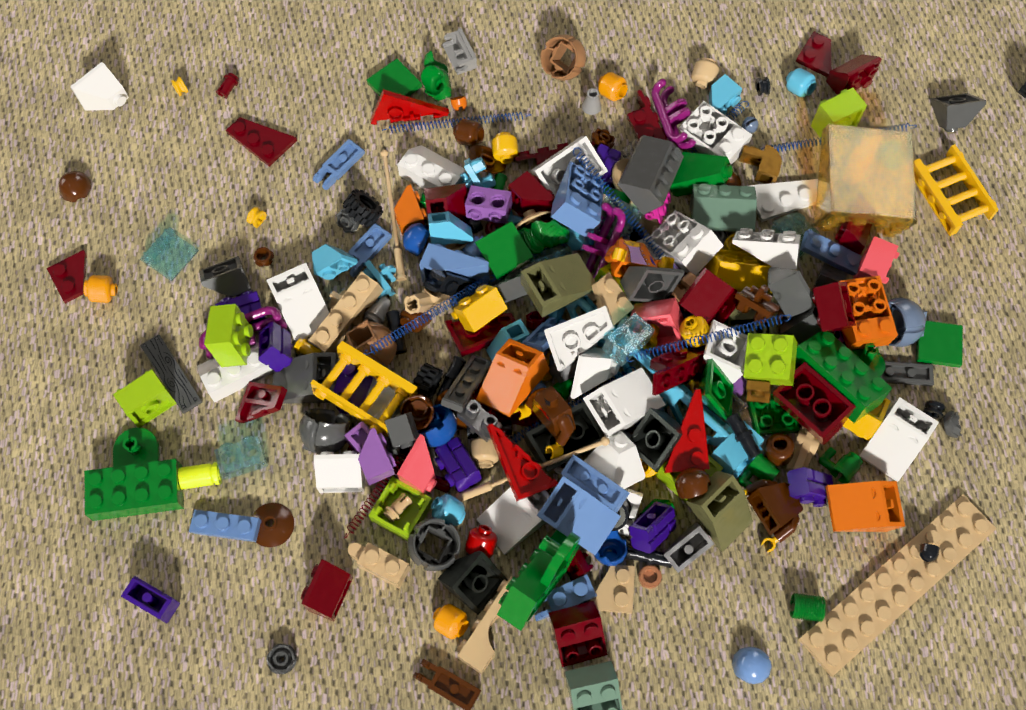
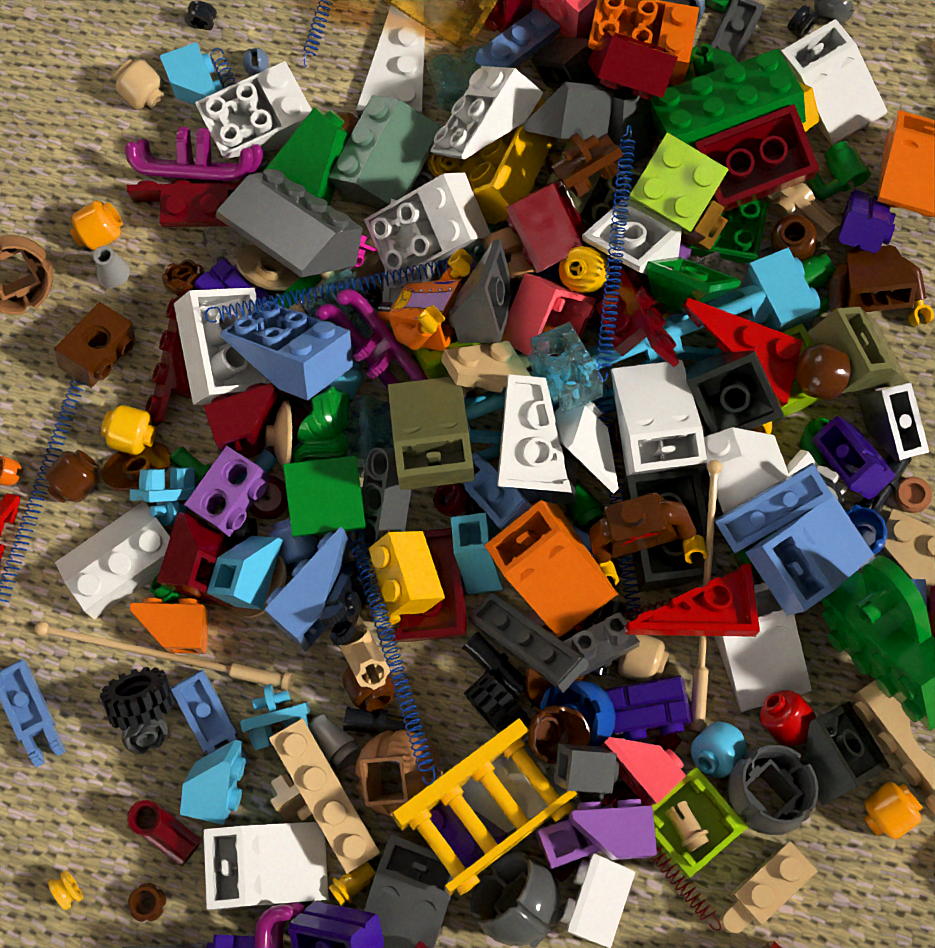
camera: 65 degrees left, 5 degrees up
(301, 250) = (167, 832): none -> dark red piece
(415, 238) = (232, 630): blue hair -> none
(553, 109) = (98, 327): none -> reddish brown brick
(743, 435) = (778, 270): black pin -> none
(767, 161) = (335, 63): pearl gold brick -> none

